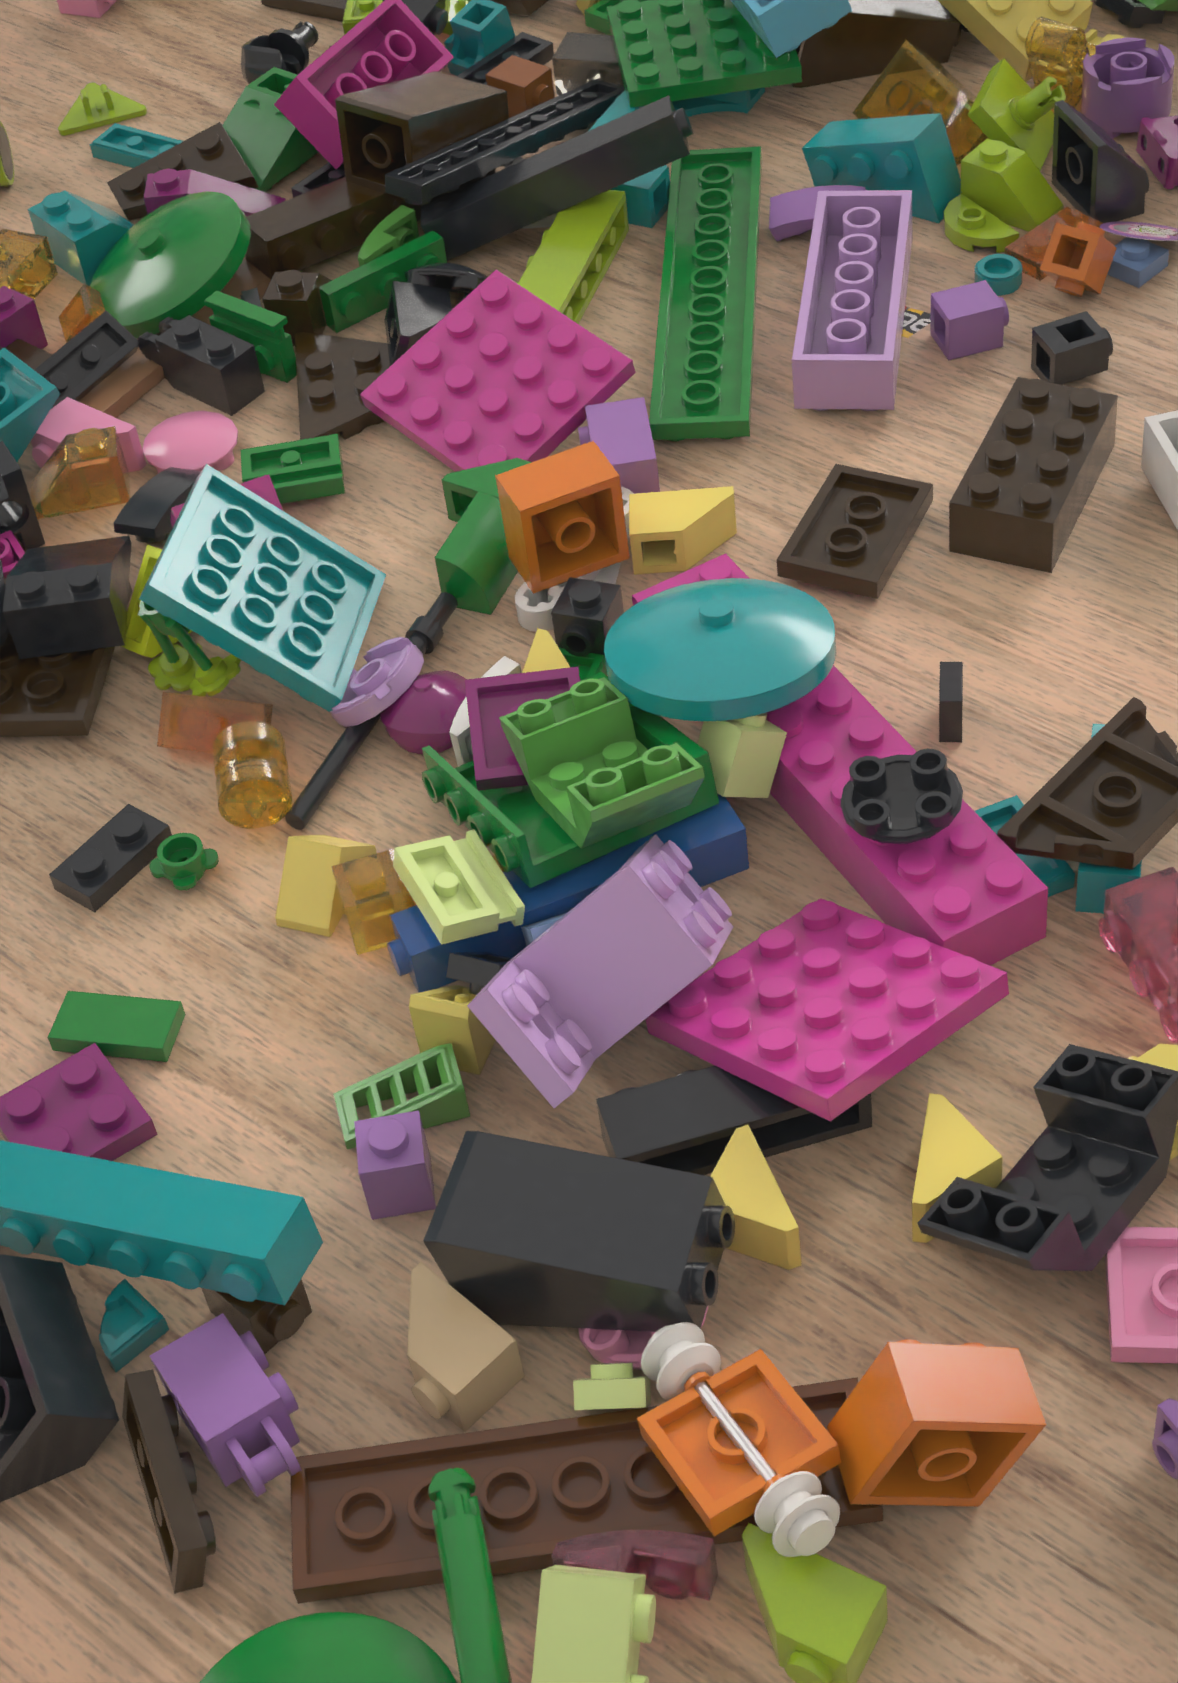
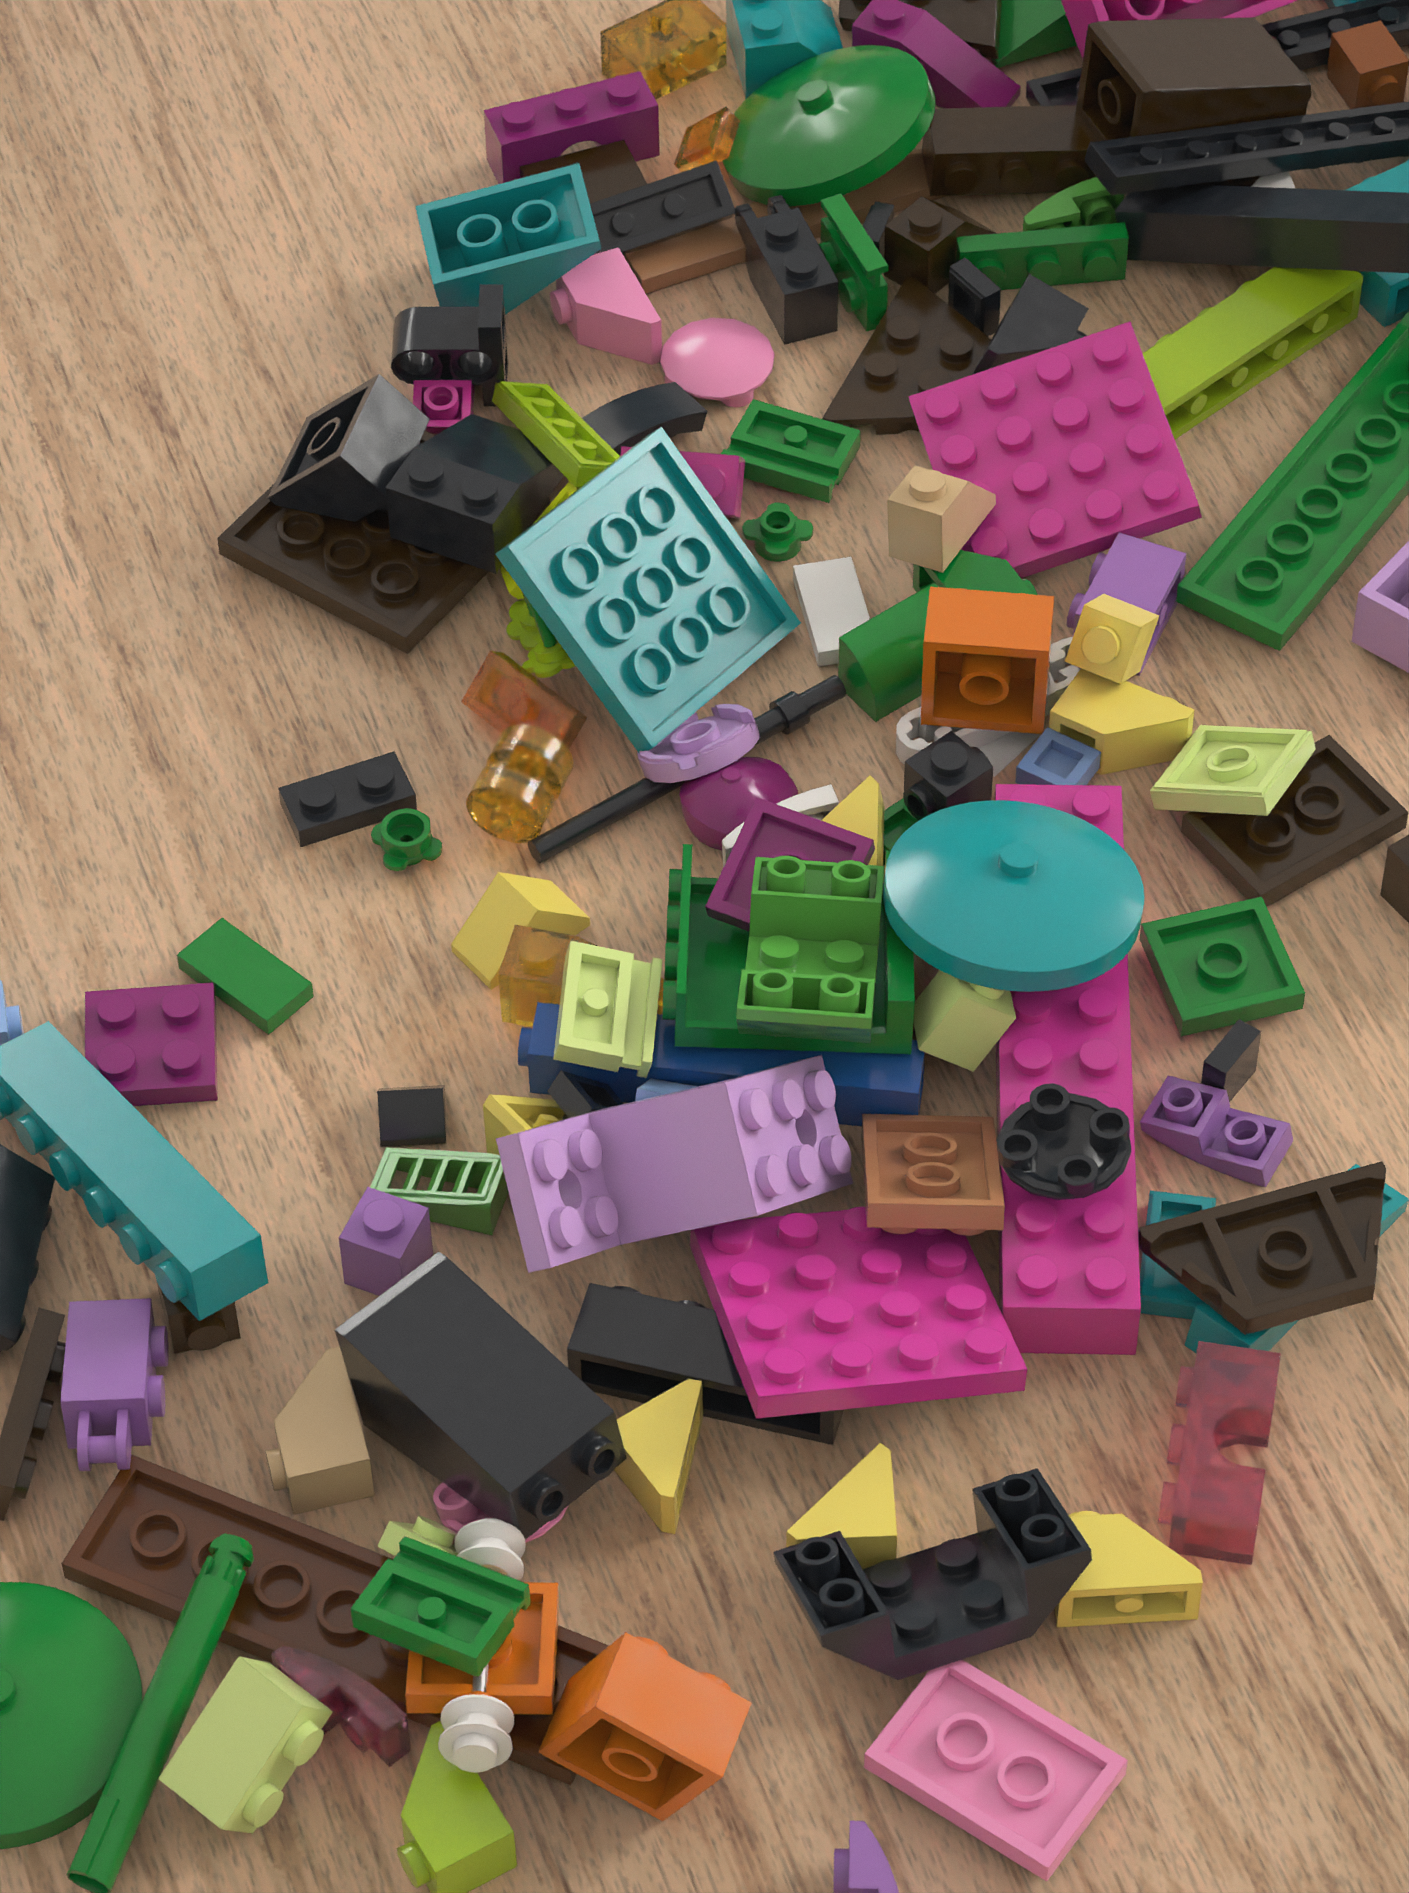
camera: 25 degrees right, 5 degrees up
(82, 475) = (583, 348): clear yellow slope -> none
(105, 528) = (555, 429): none -> lime tile
(128, 1325) = (80, 1265): teal tile -> none
(327, 521) = (777, 533): none -> green plate
(338, 1058) = (412, 1115): none -> black slope
(355, 319) = (974, 296): none -> black tile
(400, 555) = (829, 603): none -> white tile
(446, 275) = (1105, 295): black dish -> none
(447, 447) = (934, 517): none -> tan slope
(641, 465) = (1111, 638): none -> light yellow brick
(653, 567) = (1058, 761): none -> medium blue plate
(686, 1422) = (440, 1606): none -> green plate
(789, 514) = (1233, 770): none -> yellowish green tile
(804, 879) = (931, 1173): none -> nougat plate
(892, 643) = (1221, 966): none -> green plate
(985, 754) = (1205, 1129): none -> medium lavender slope

